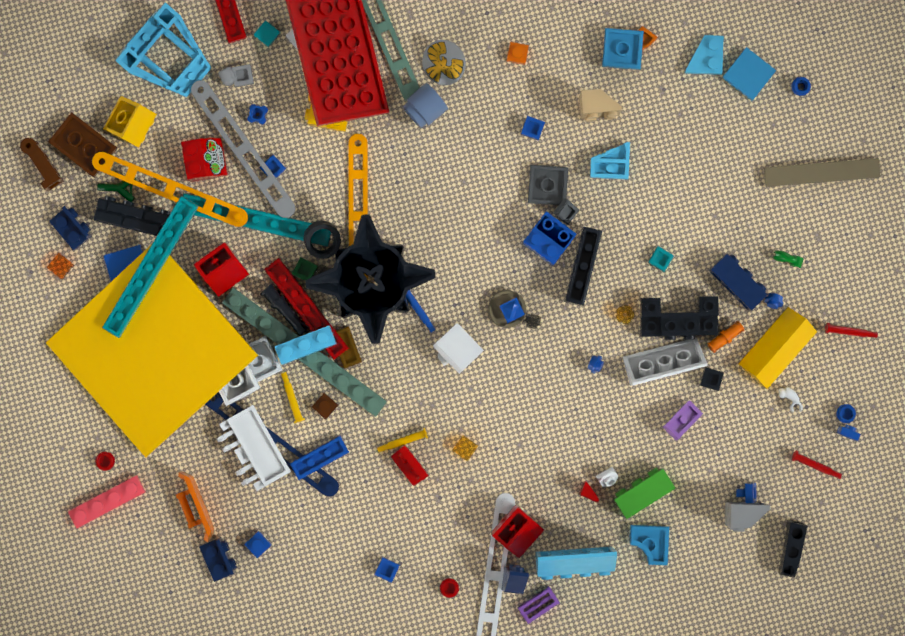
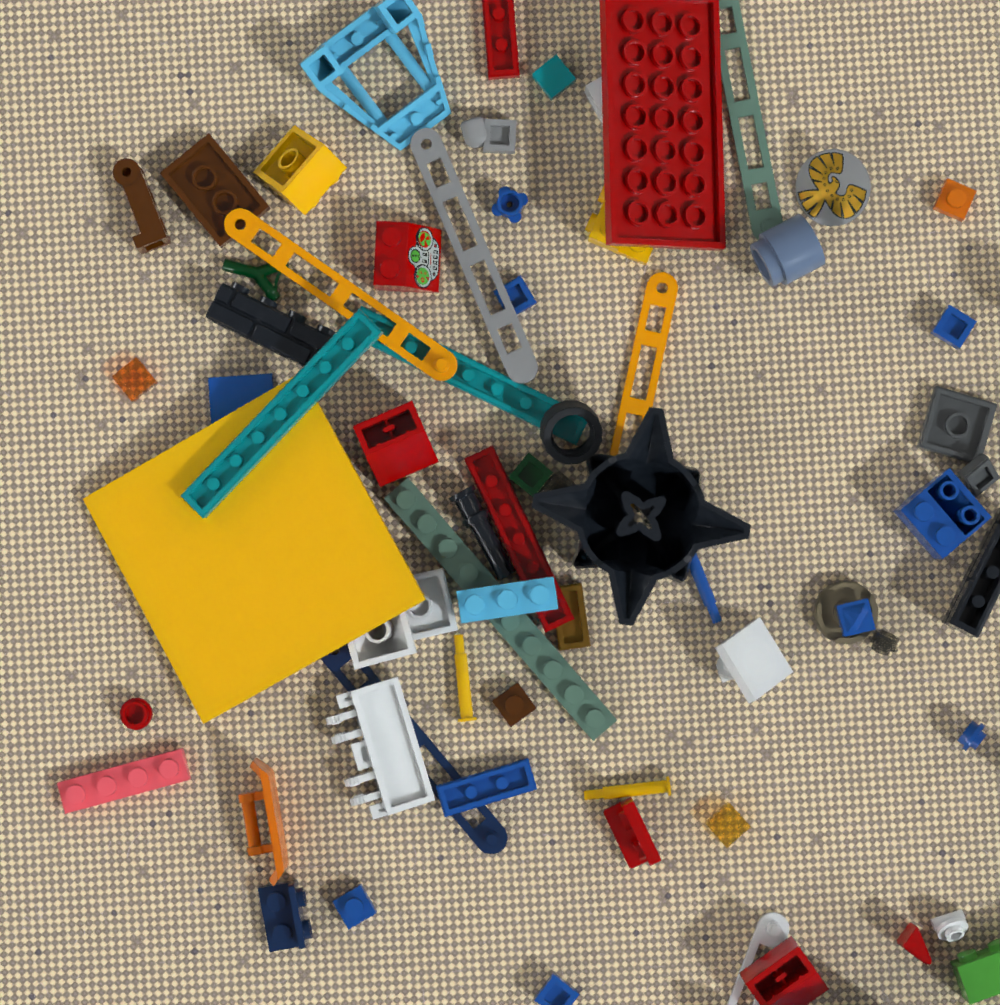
camera: 15 degrees right, 0 degrees up
(71, 228) = (165, 321): dark blue bracket -> none

